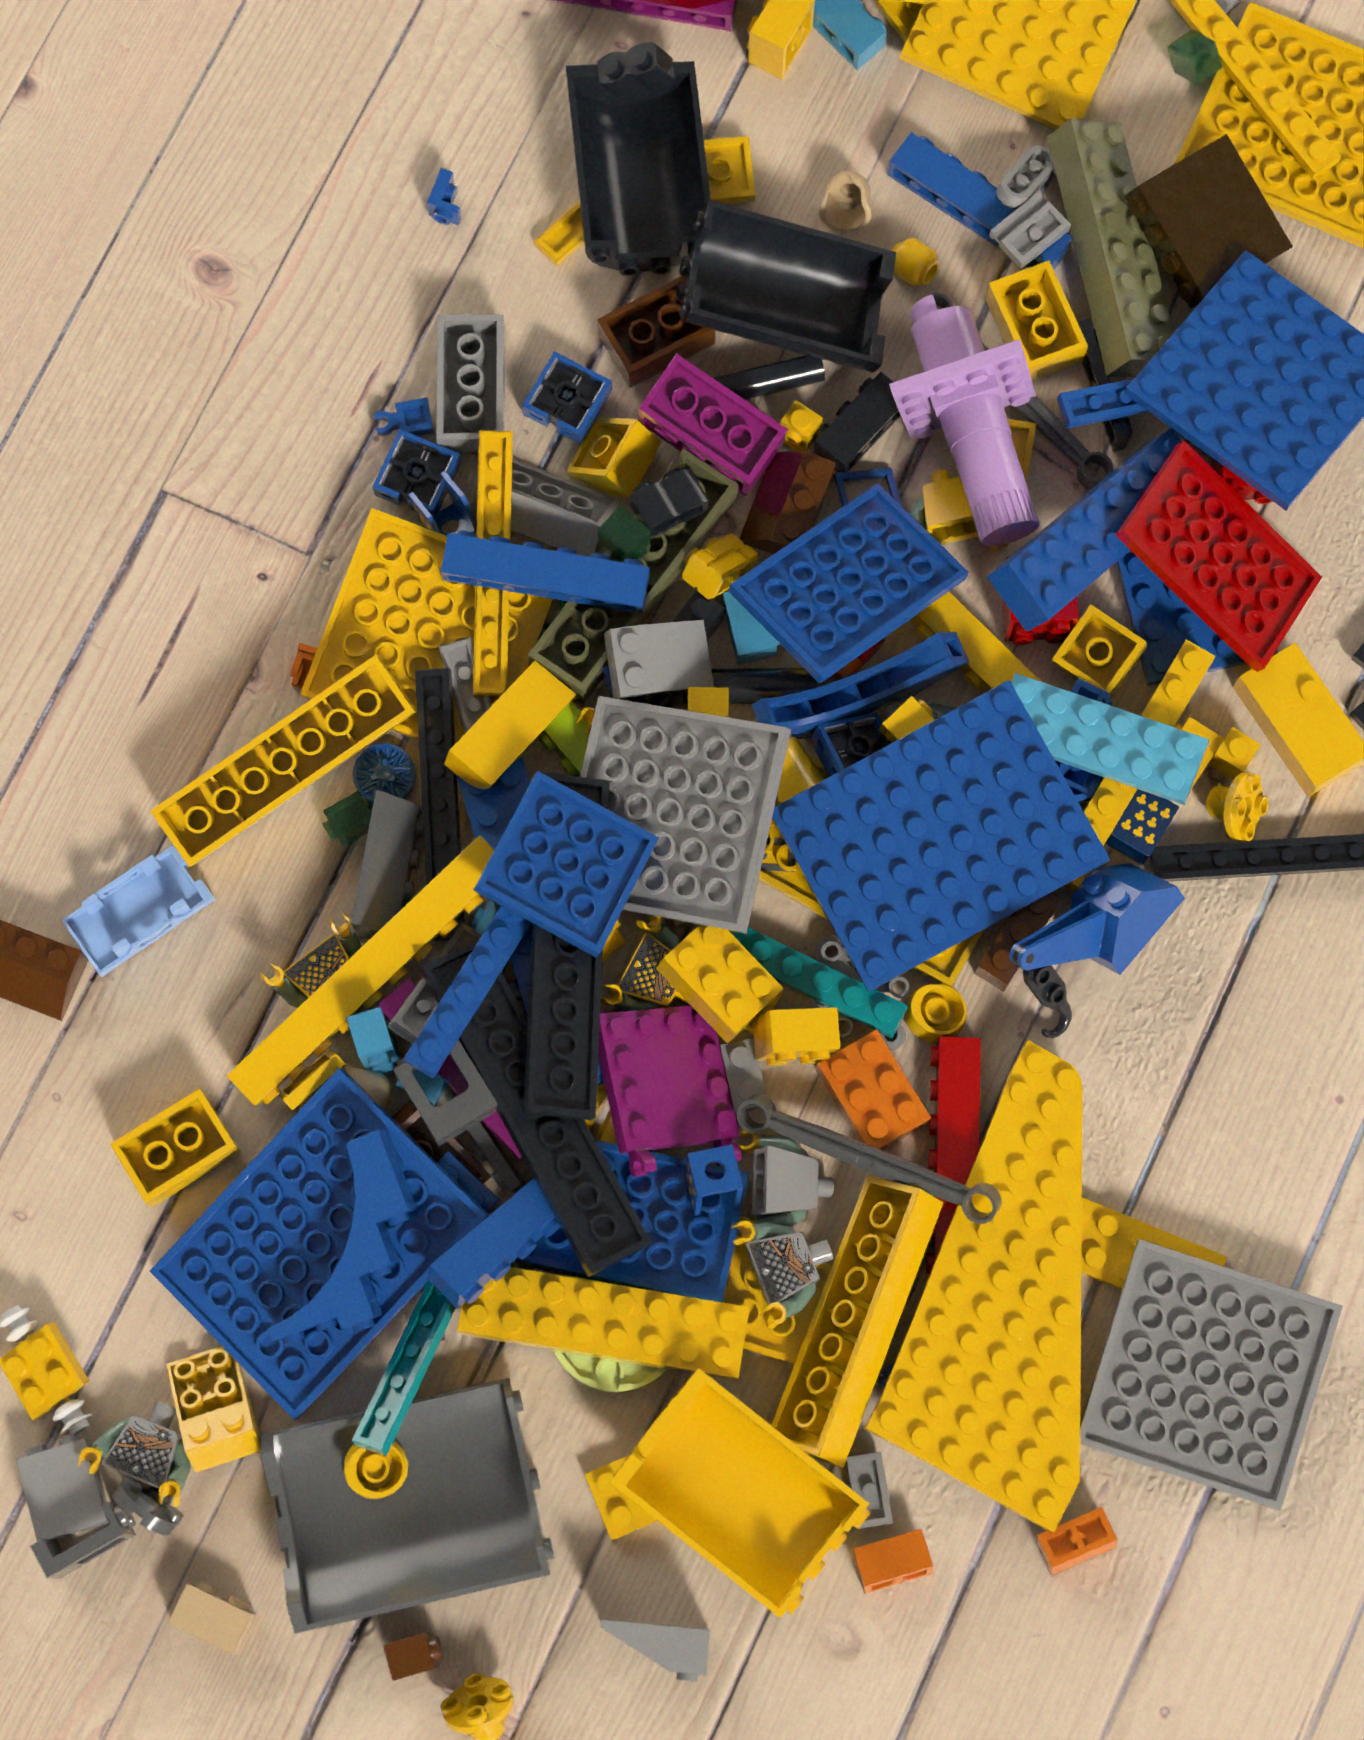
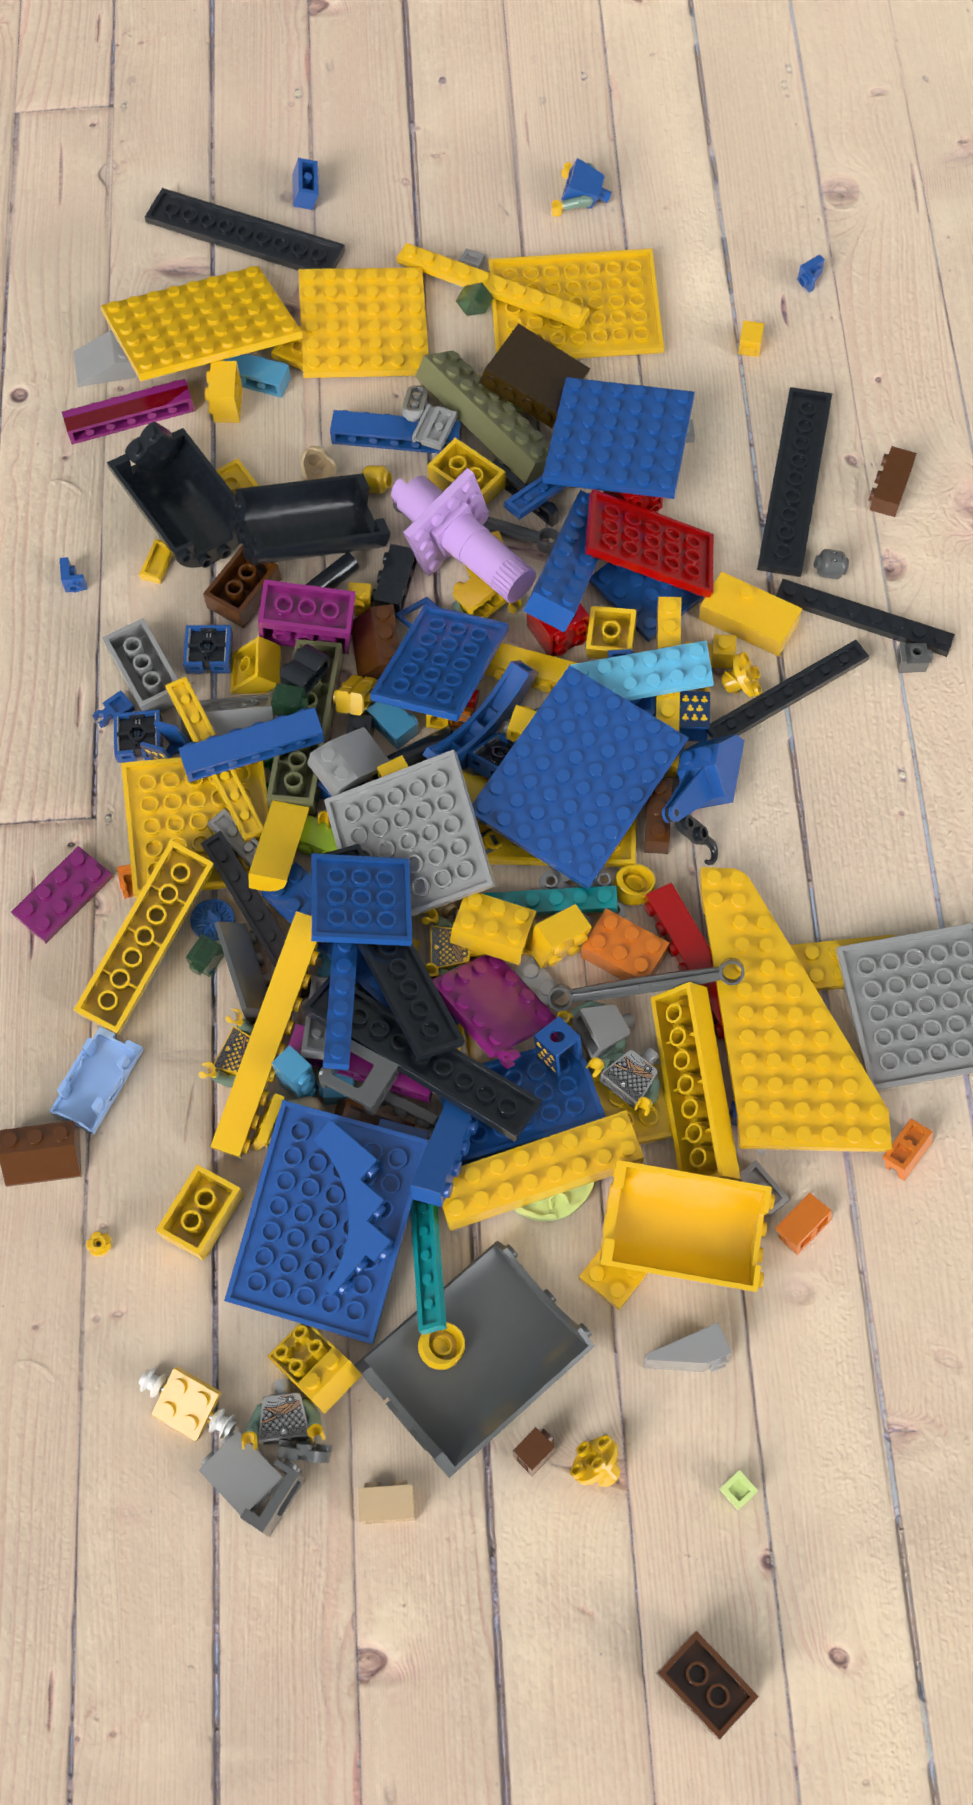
camera: 25 degrees left, 10 degrees down
(42, 1127) = (105, 1246): none -> yellow plate
(217, 640) = (62, 894): none -> magenta plate

